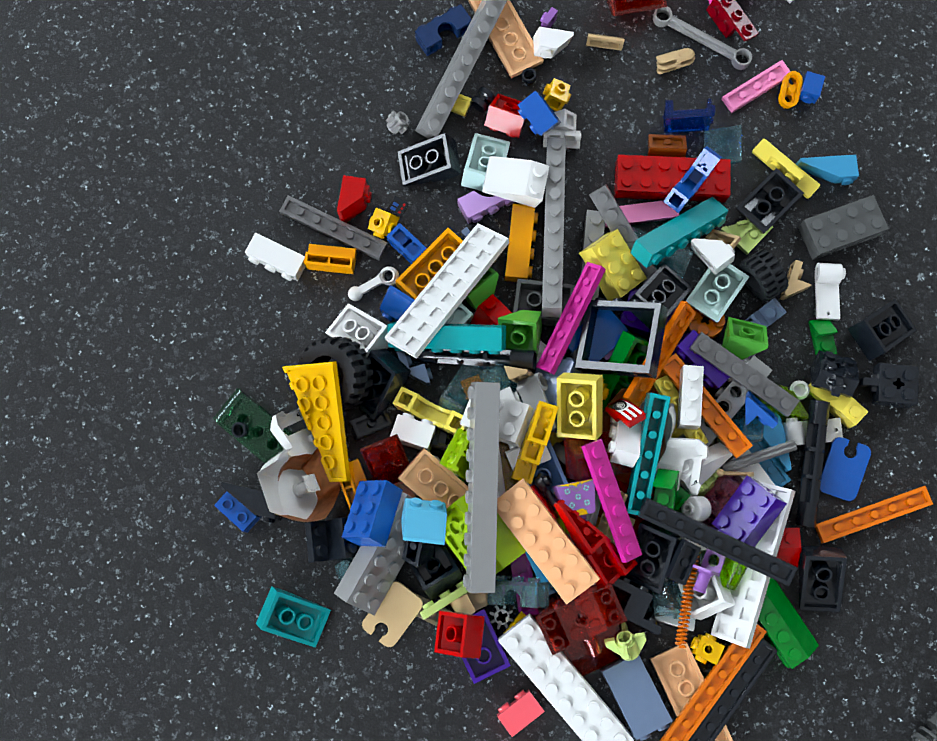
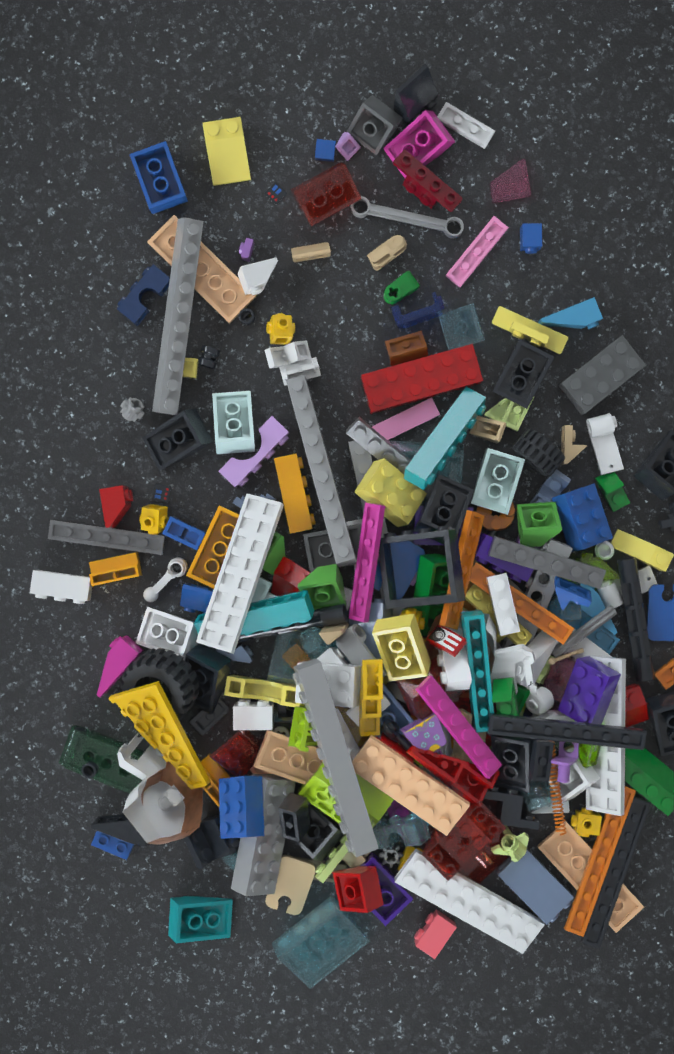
camera: 20 degrees left, 10 degrees up
(305, 333) = (121, 655): none -> dark pink slope
(402, 682) = (319, 942): none -> clear light blue slope
(424, 521) = (292, 803): medium azure slope -> none
(504, 116) = (239, 365): slope -> none
(516, 180) = (269, 437): white slope -> none
(538, 113) = (270, 360): blue slope -> none
(680, 94) = (403, 286): none -> green piece
(692, 180) = (441, 384): blue arch -> none
(713, 253) = (484, 449): white slope -> none
(788, 349) = (582, 518): none -> blue brick
(790, 91) = (513, 246): light orange plate -> none
(805, 39) = (511, 184): none -> clear pink wing
(834, 374) = (633, 528): black hinge -> none

